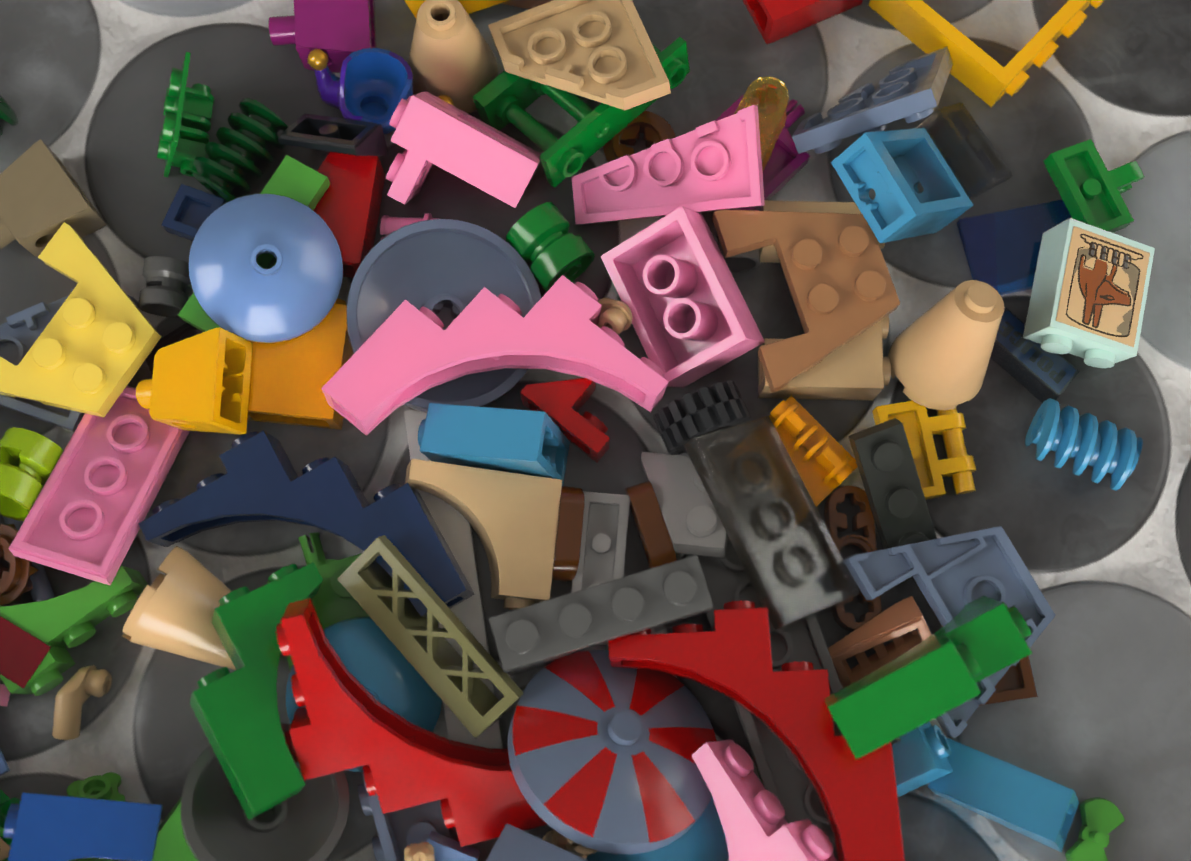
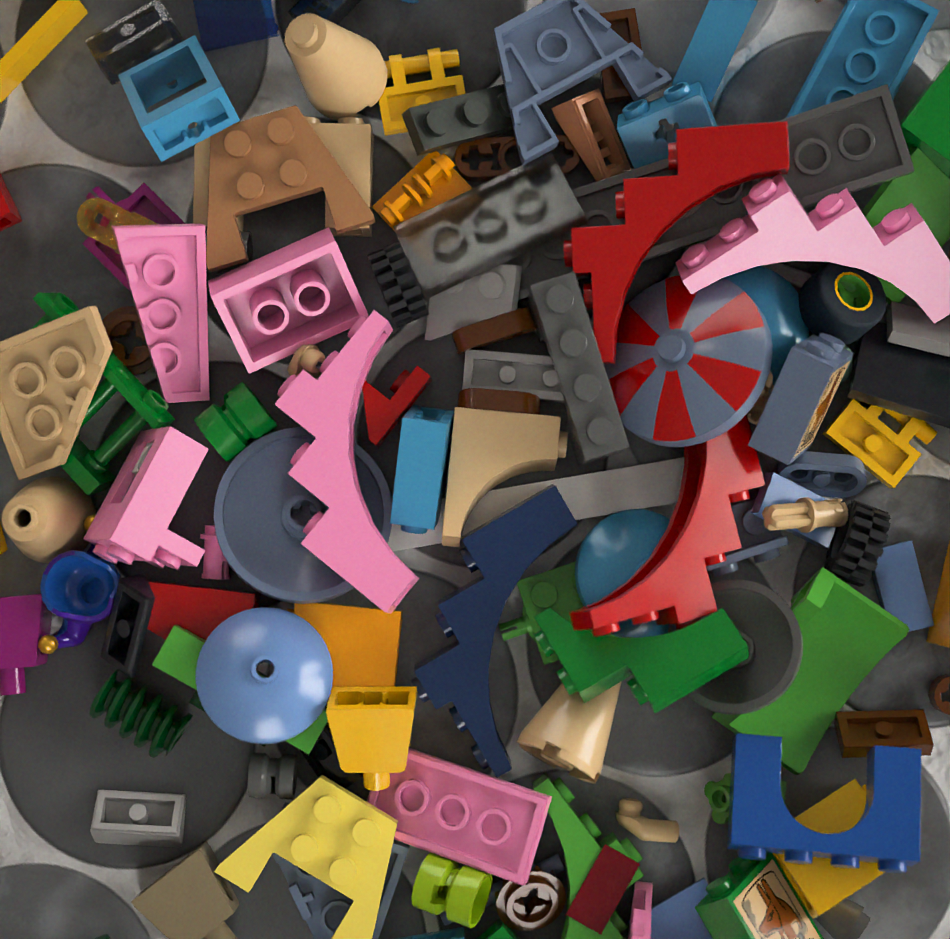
camera: 90 degrees left, 10 degrees up
(133, 163) = (139, 818): none -> light grey slope
(185, 122) = (91, 773): green hinge -> none
(189, 211) = (201, 754): dark blue plate -> none
(424, 642) = (600, 519): olive fence -> none
(906, 93) = (95, 101): sand blue plate -> none
(930, 676) = (631, 91): green arch -> none

